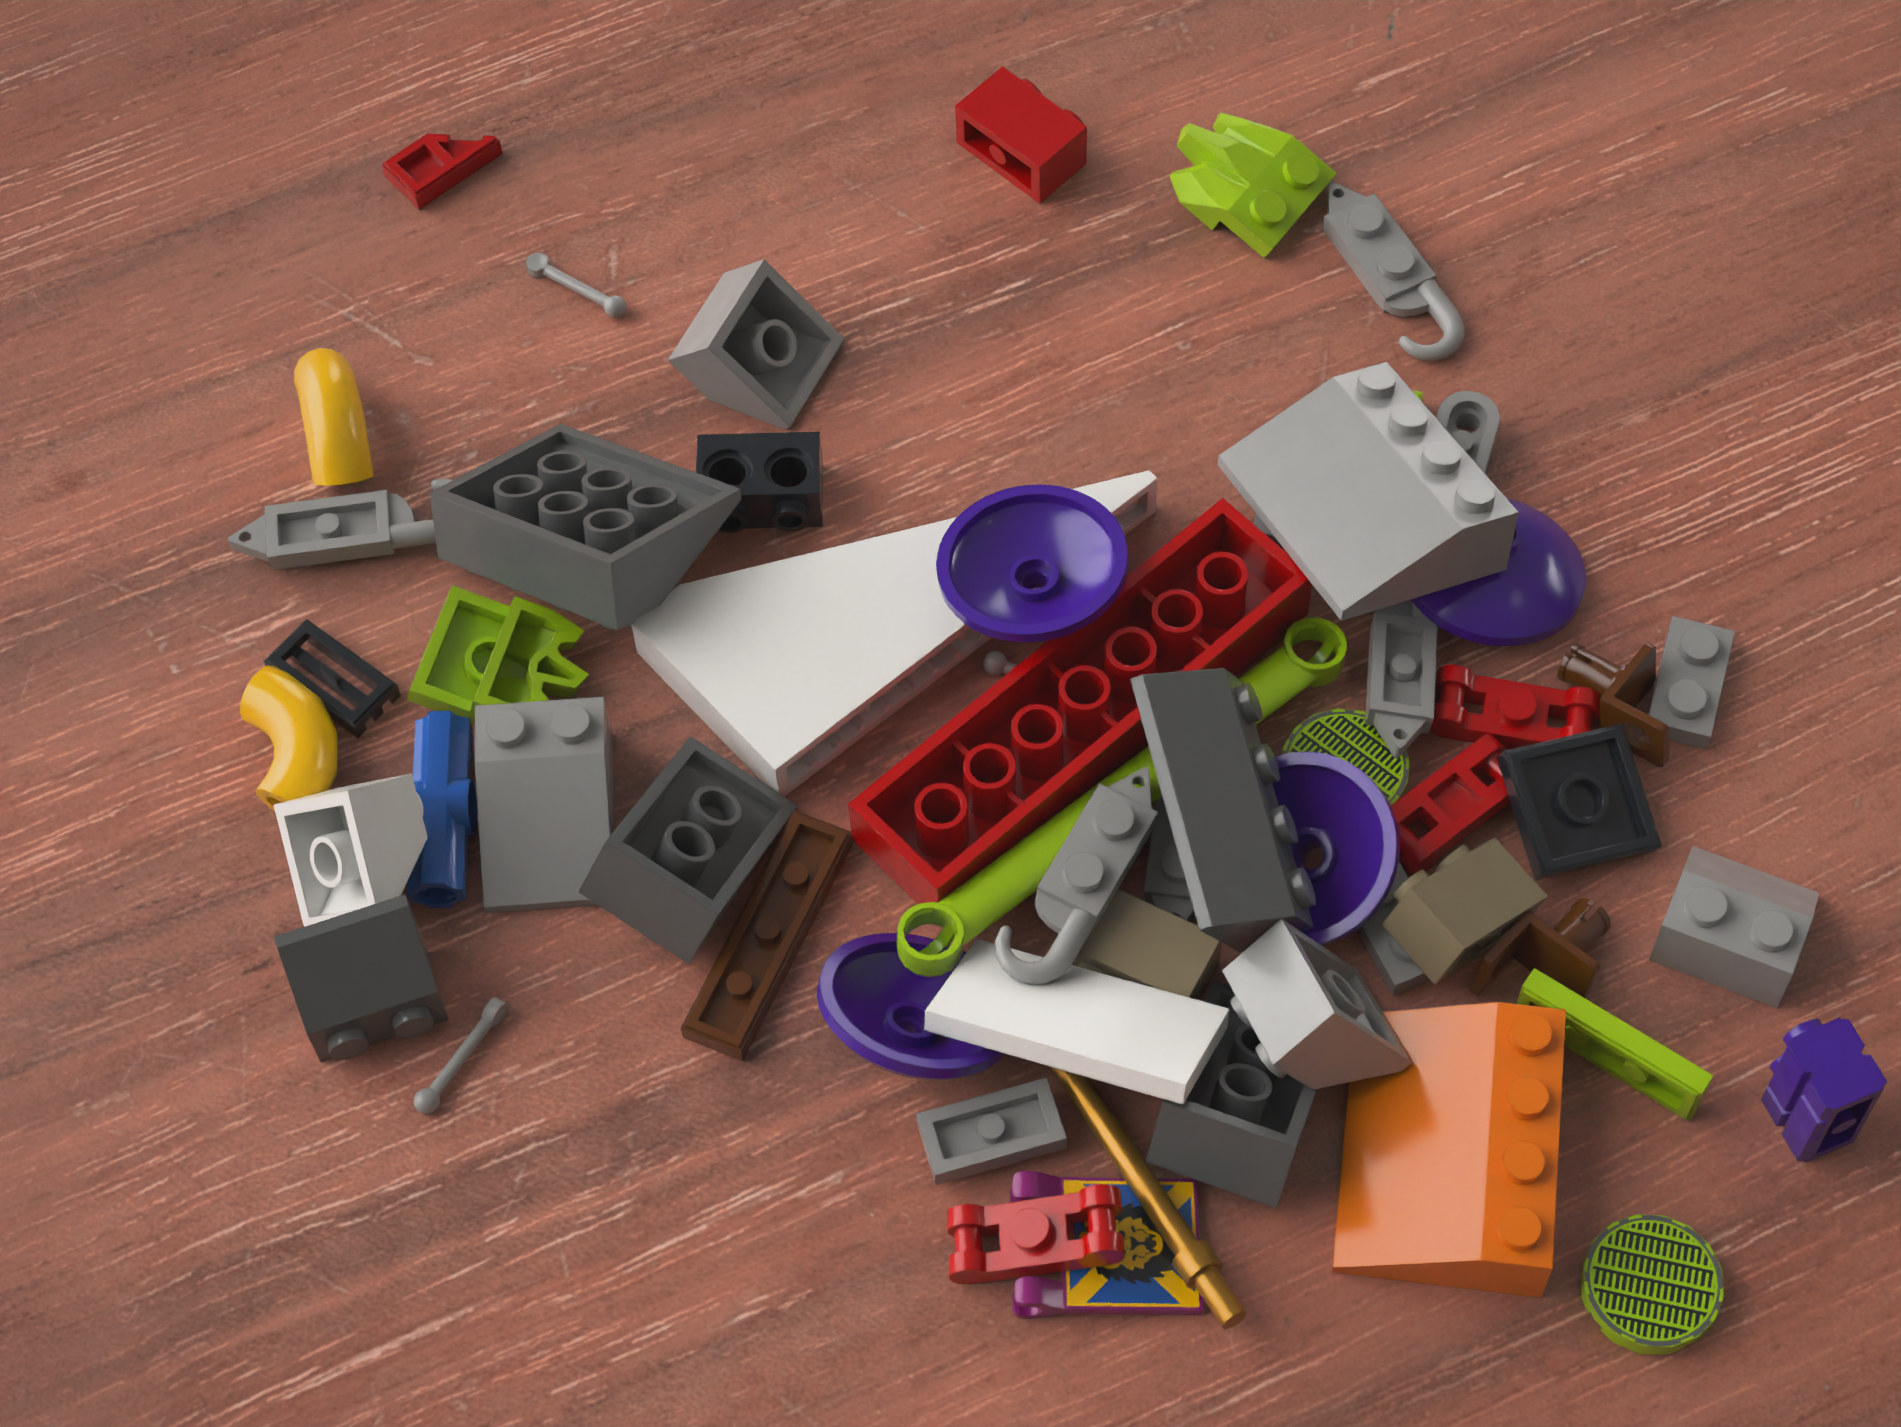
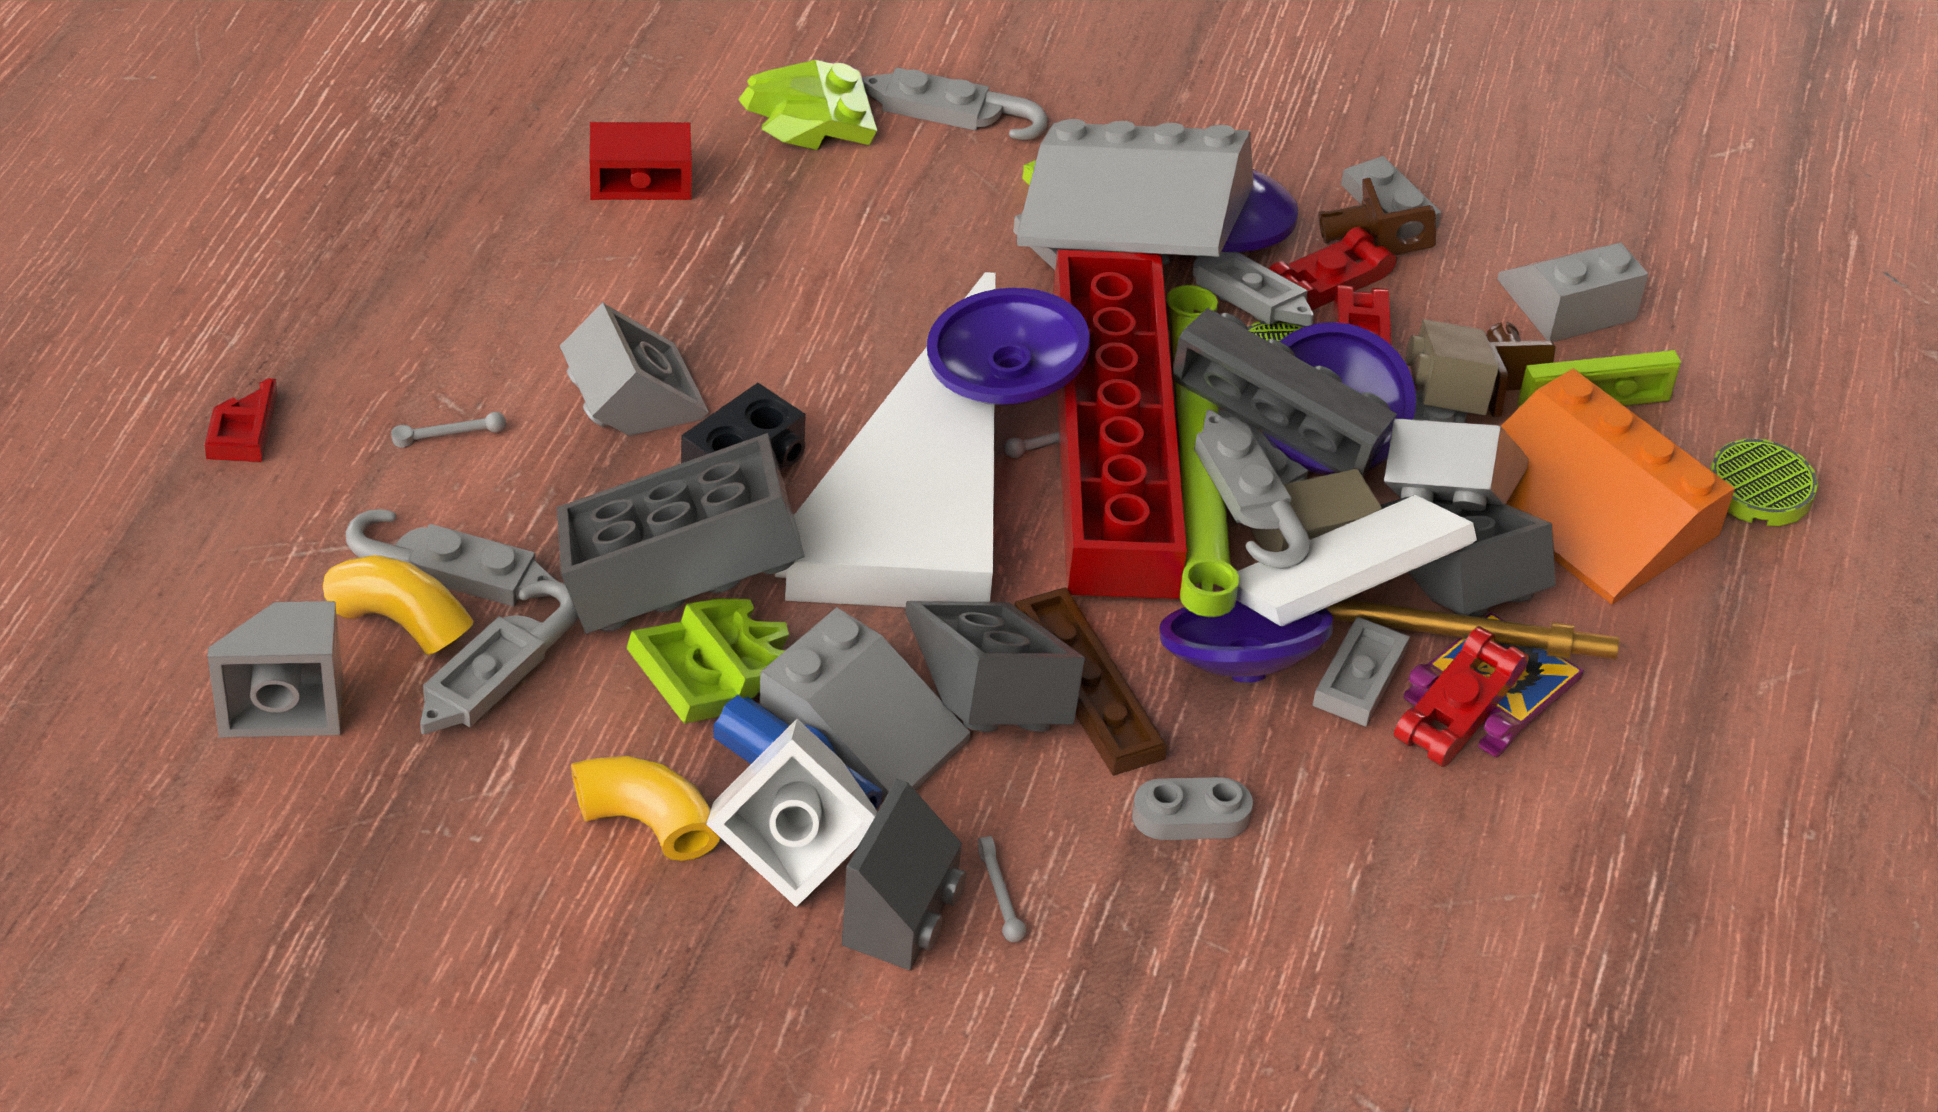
camera: 55 degrees left, 15 degrees down
(171, 414) = (279, 673): none -> light grey slope
(366, 706) = (603, 743): black tile -> none
(432, 402) = (453, 558): none -> light grey plate
(691, 1122) = (1192, 808): none -> light grey plate
(1578, 801) = (1425, 280): black tile -> none
(1822, 1087) = (1728, 317): dark purple brick -> none

